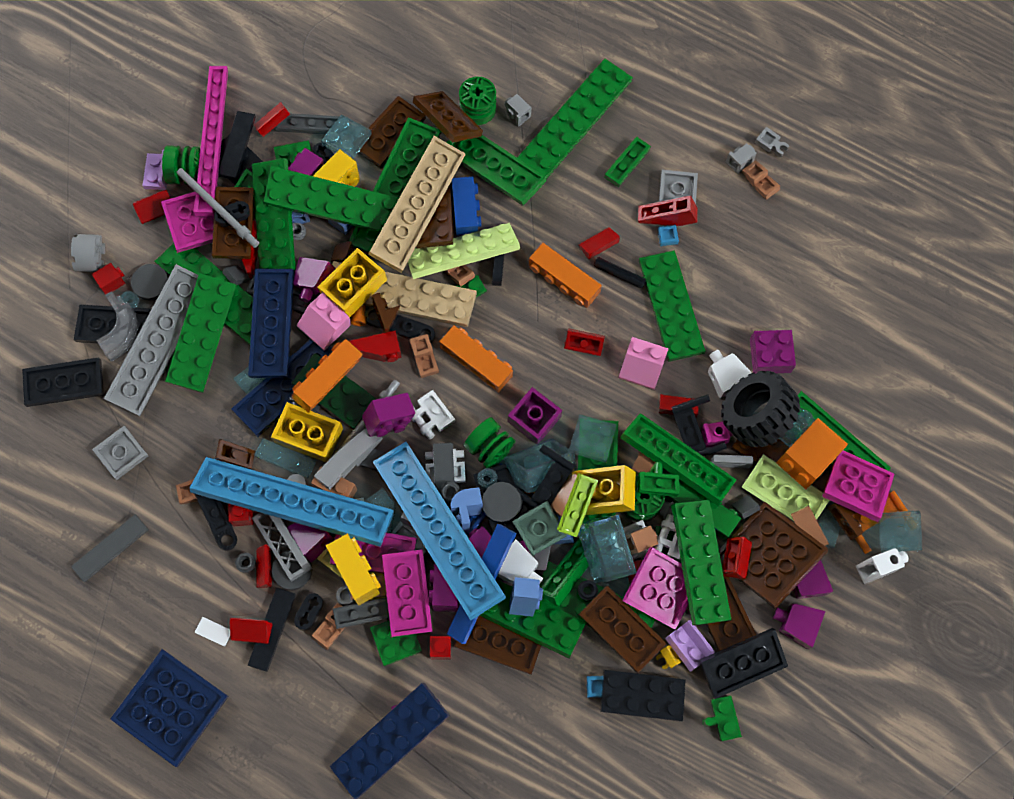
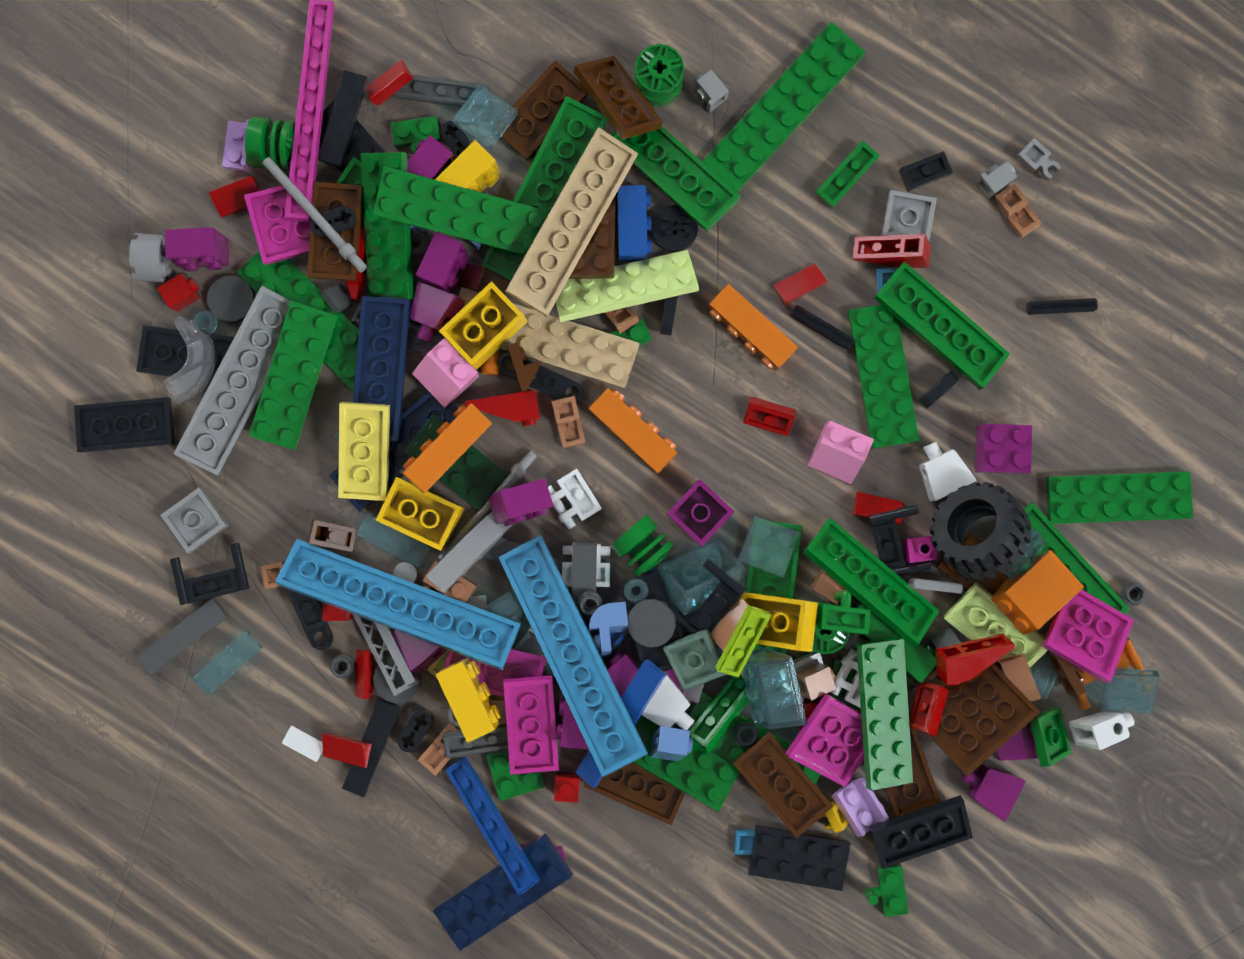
camera: 10 degrees right, 15 degrees up
(123, 243) = (197, 248): none -> magenta brick
(136, 502) = (212, 584): none -> black plate
(147, 567) = (227, 662): none -> clear light blue tile
(169, 708) = (251, 830): dark blue plate -> none
(259, 383) = (363, 451): none -> light yellow plate
(318, 239) = (443, 263): none -> magenta brick
(378, 681) = (492, 825): none -> blue tile
(489, 208) = (663, 227): none -> black plate
(687, 156) = (925, 171): none -> black plate
(712, 263) = (942, 325): none -> green plate
(716, 311) = (939, 389): none -> black beam
(764, 513) = (968, 659): none -> red slope
(804, 245) = (1062, 306): none -> black axle
(840, 574) = (1050, 736): none -> green plate
(870, 384) = (1119, 497): none -> green plate
(896, 454) = (1139, 597): none -> dark grey plate

